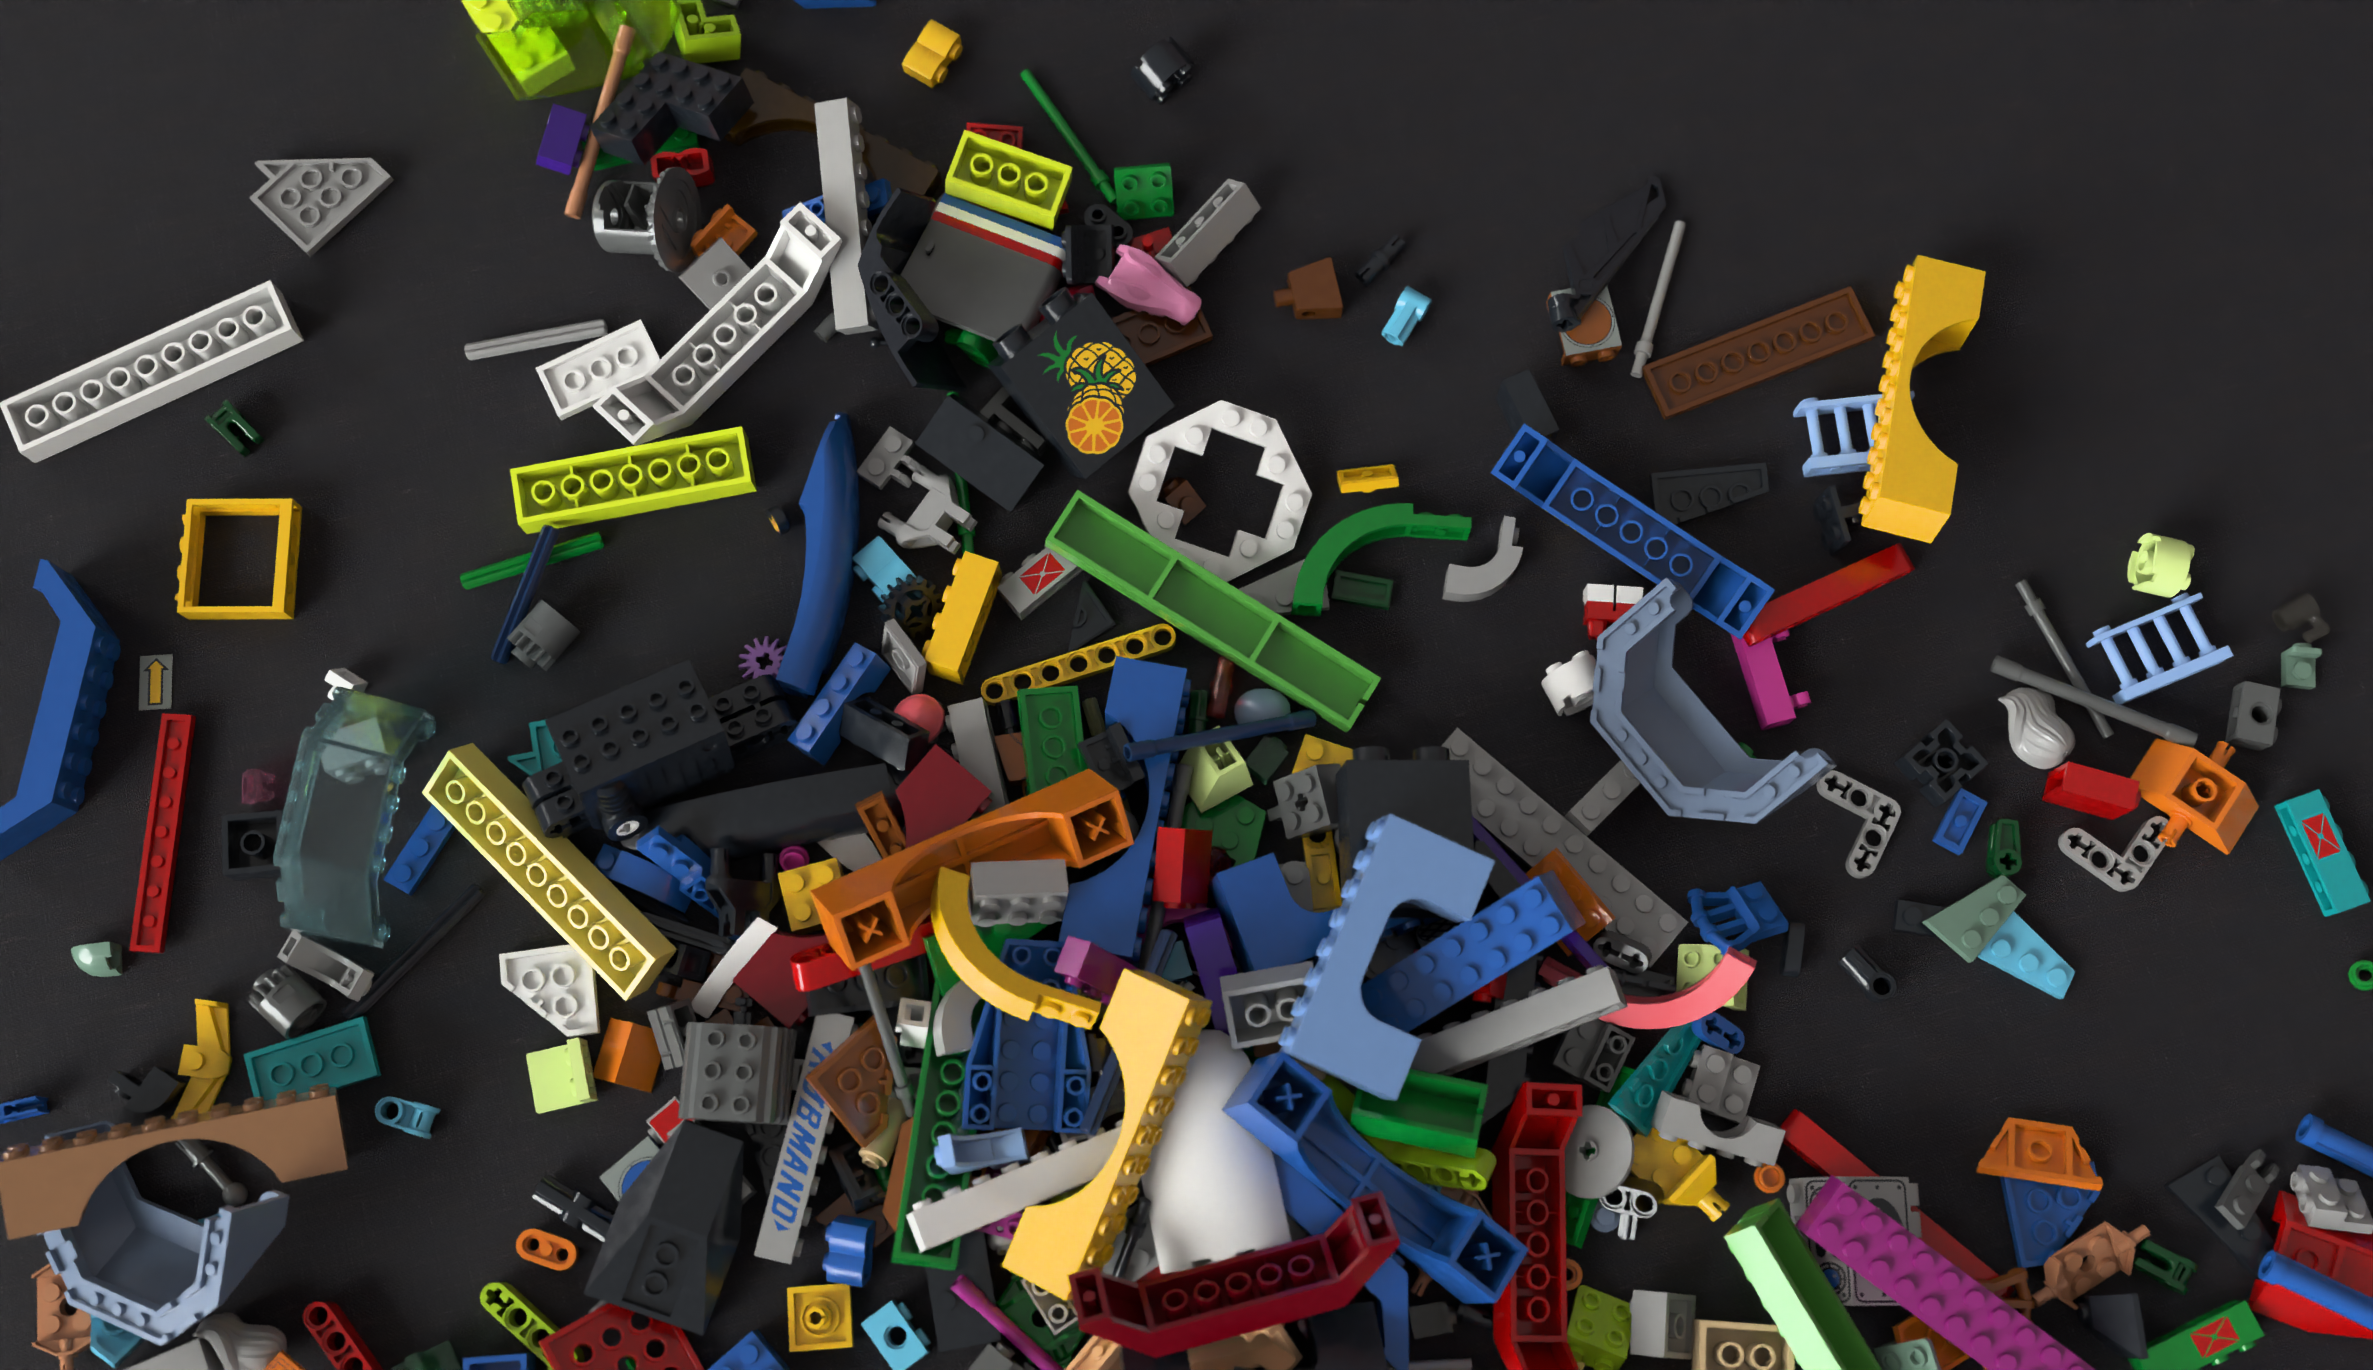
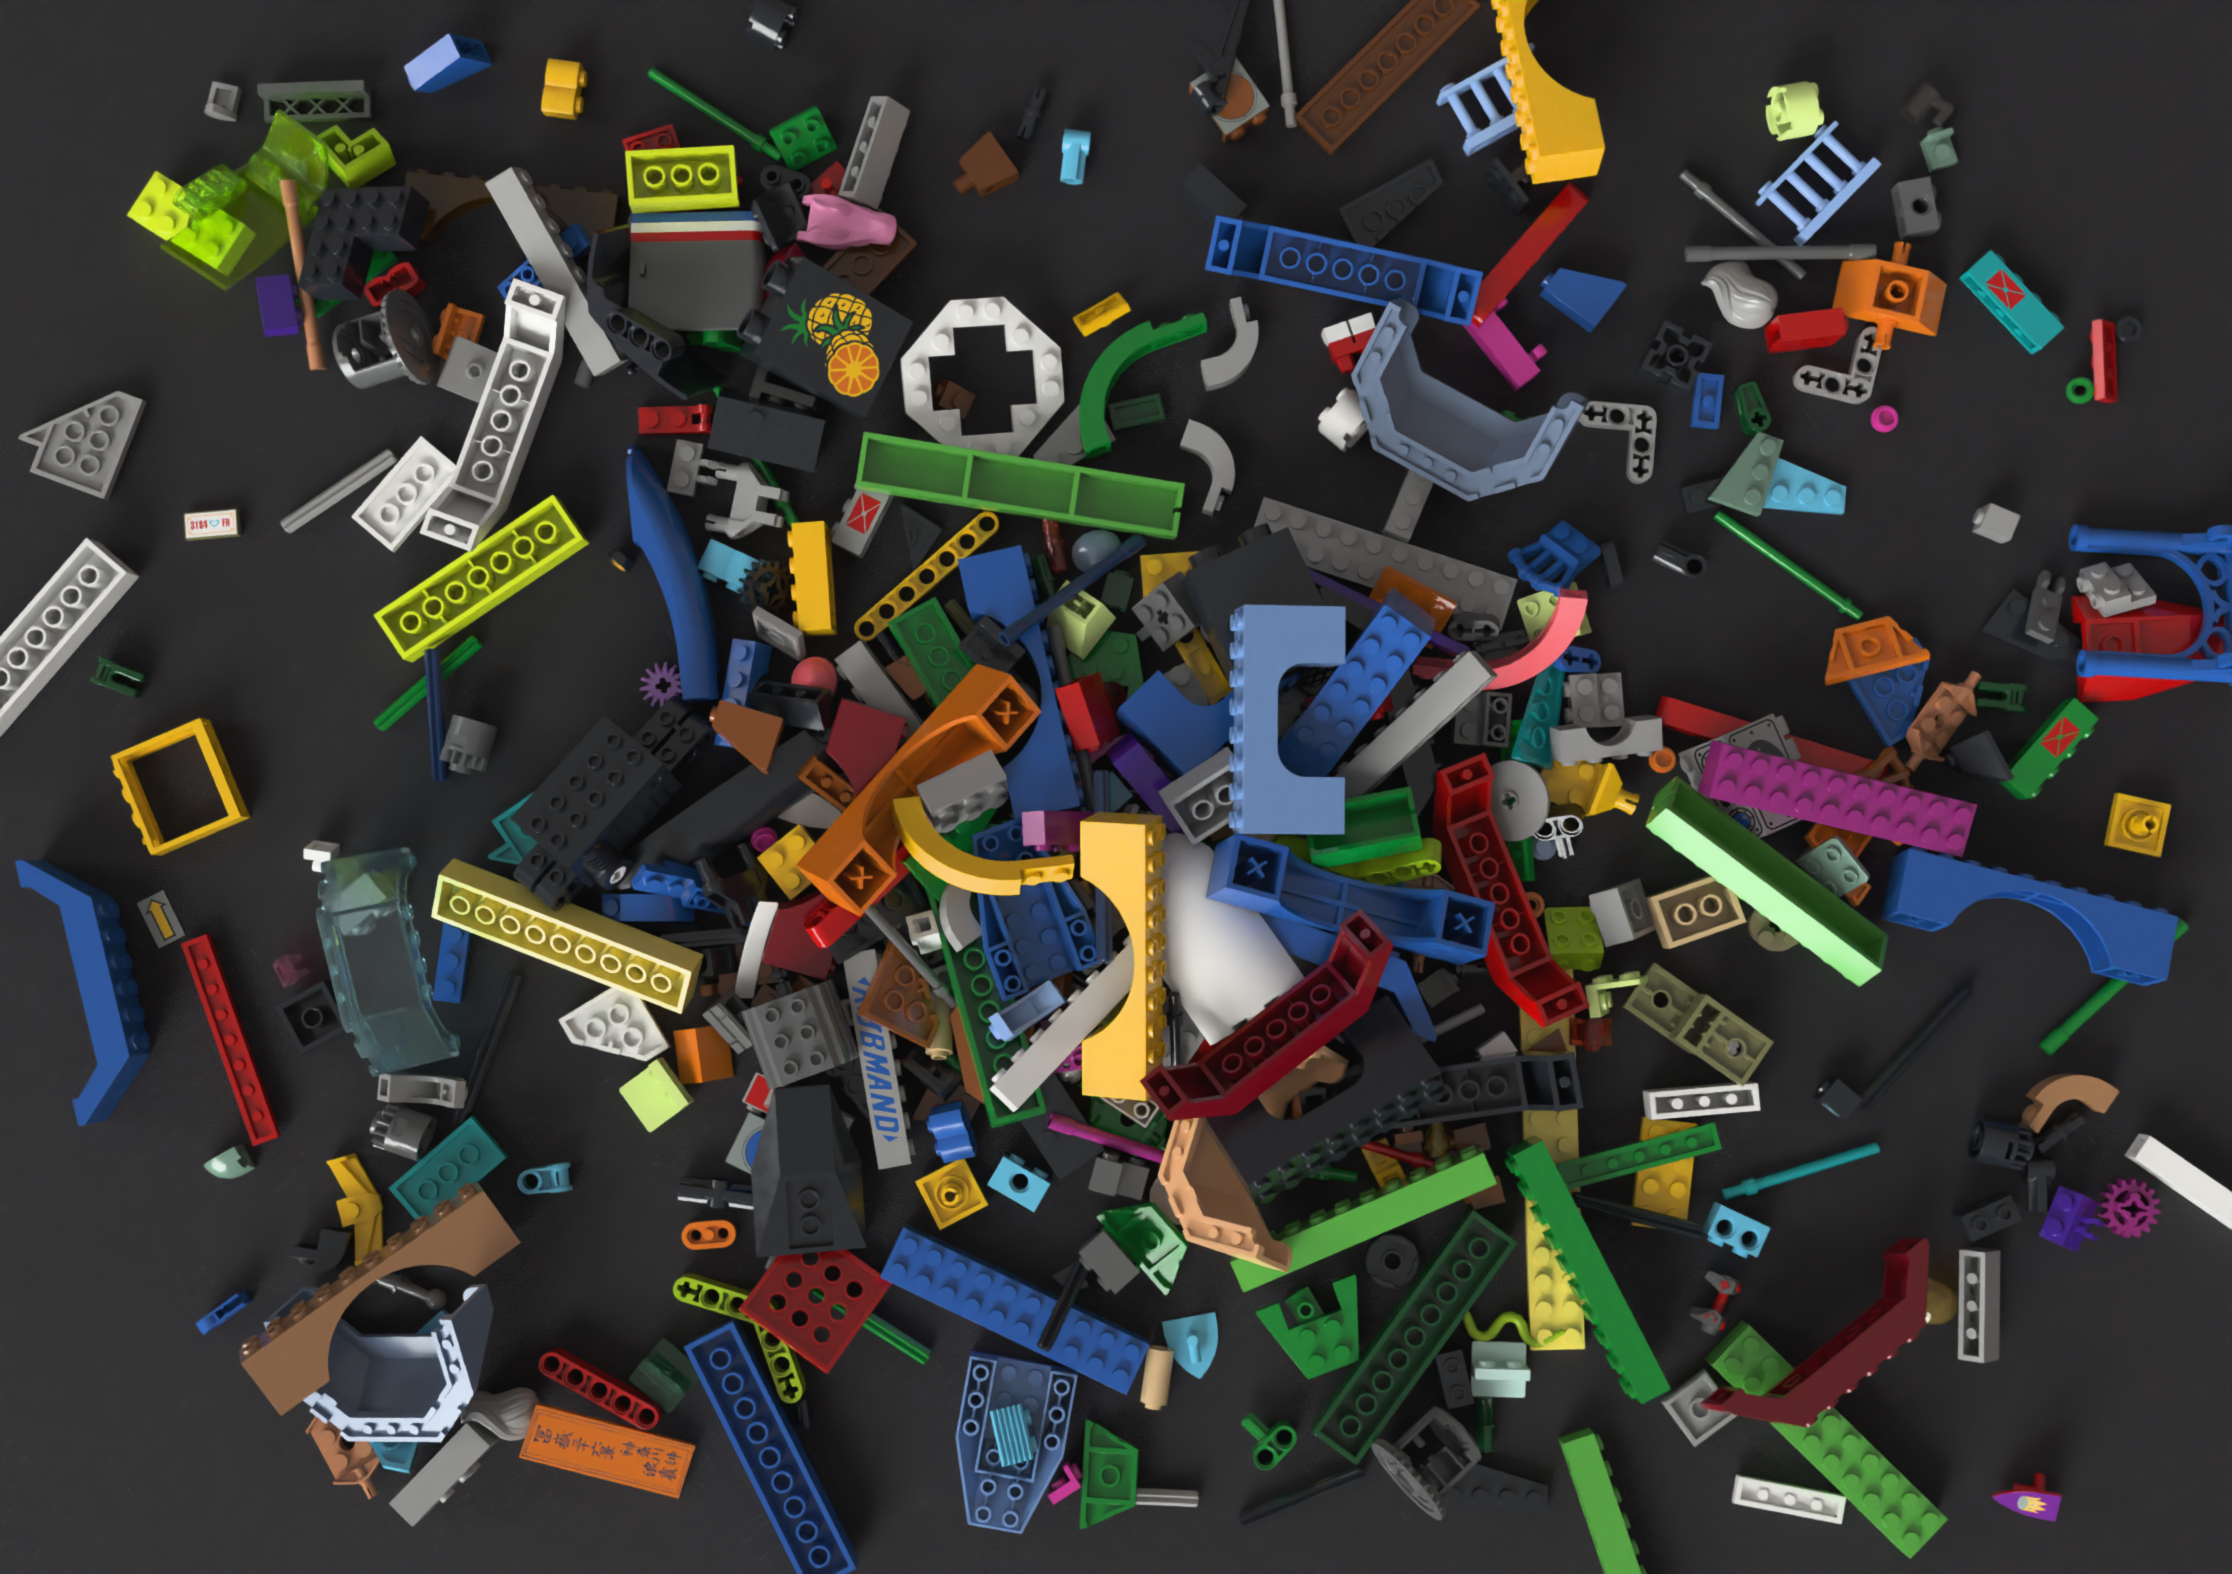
camera: 20 degrees left, 10 degrees up
(398, 320) = (212, 524): none -> white tile
(827, 740) = (749, 732): none -> dark orange slope
(895, 406) = (675, 420): none -> red plate
(1424, 657) = (1214, 451): none -> light grey arch
(1868, 660) = (1581, 295): none -> blue slope
(2027, 1095) = (1843, 604): none -> green bar
(2142, 918) = (1884, 418): none -> dark pink plate
(2223, 1076) = (1995, 523): none -> light grey brick

